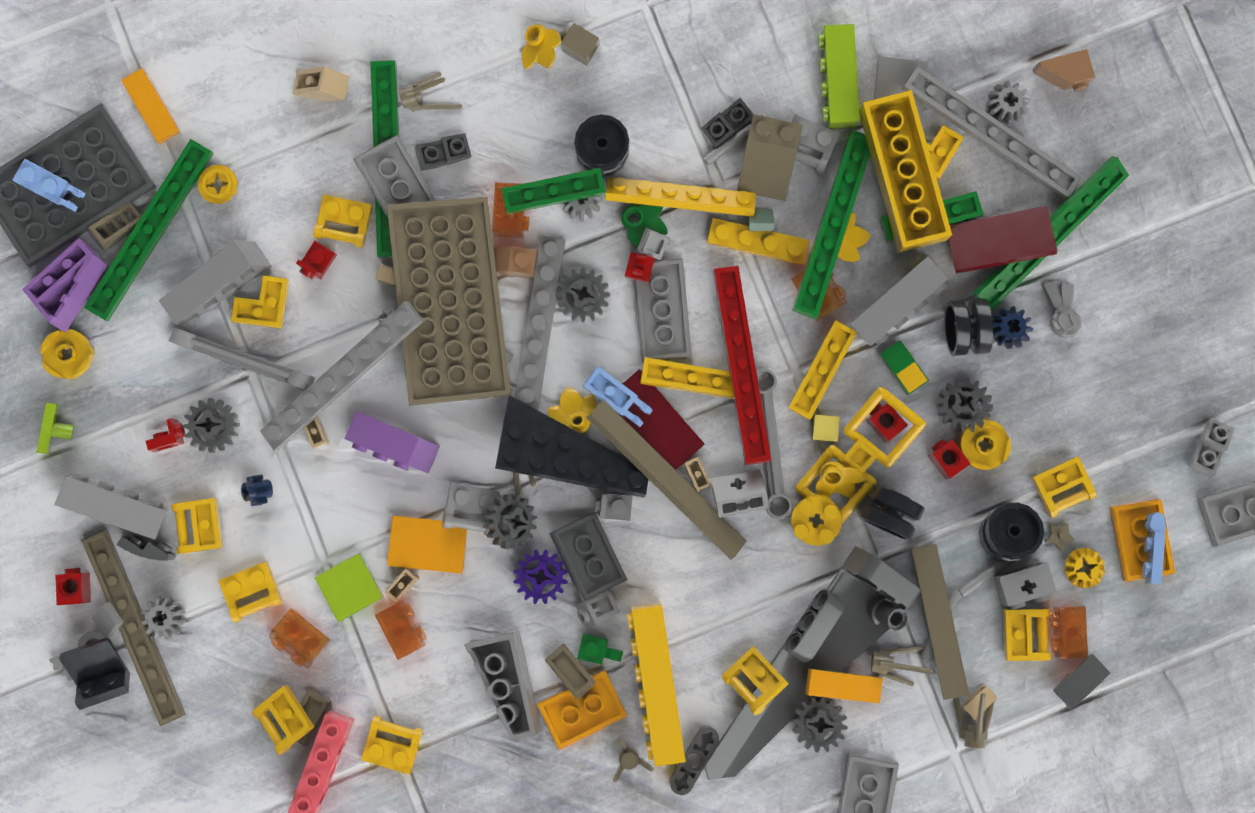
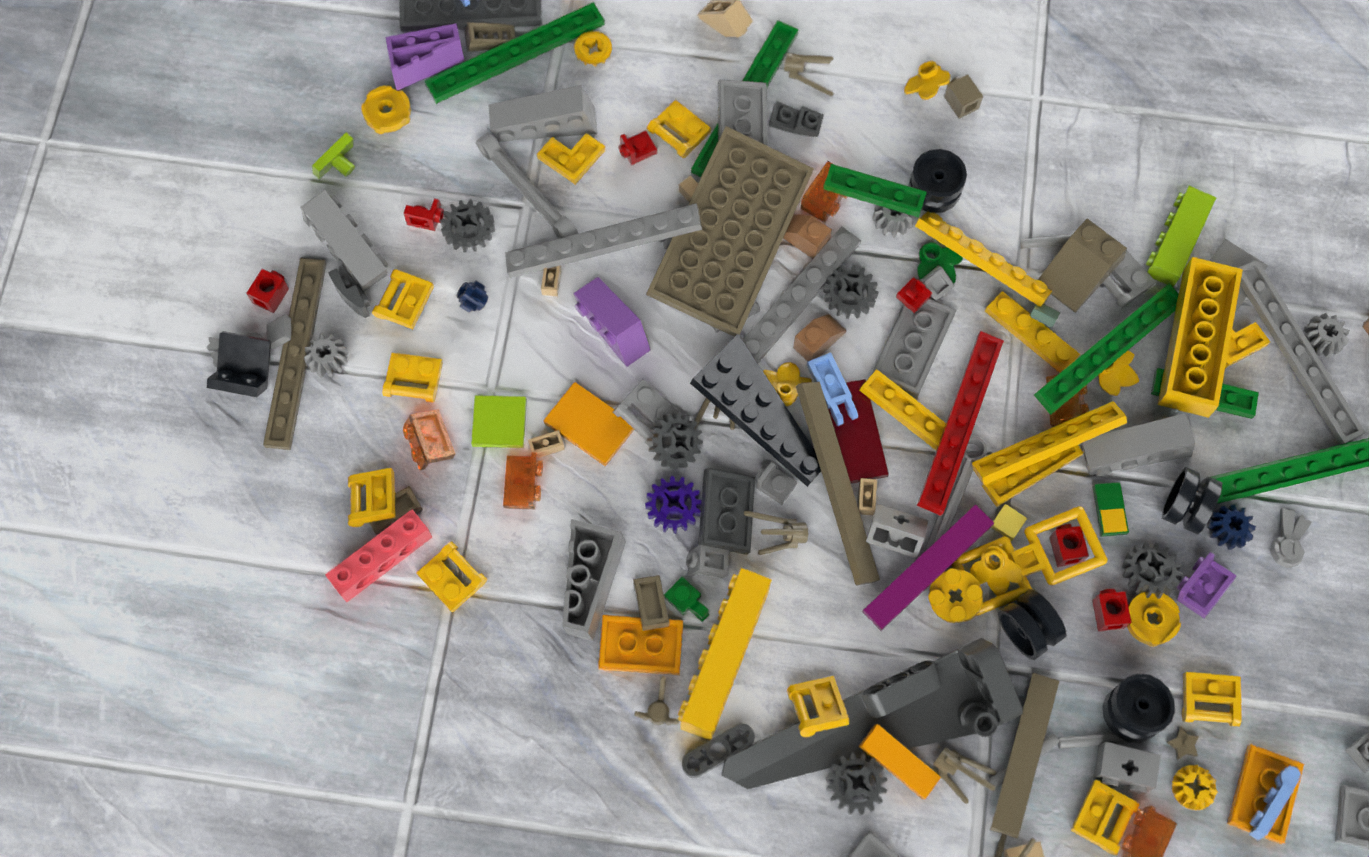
camera: 30 degrees right, 15 degrees down
(579, 352) = (818, 337): none -> medium nougat slope
(654, 545) = (792, 531): none -> dark tan plant
(728, 122) = (1057, 223): dark grey slope -> none
(782, 510) = (928, 567): none -> magenta tile
(825, 343) = (1049, 442): none -> yellow plate
(1002, 239) = (1262, 444): dark red tile -> none
(1014, 393) = (1205, 585): none -> medium lavender bracket

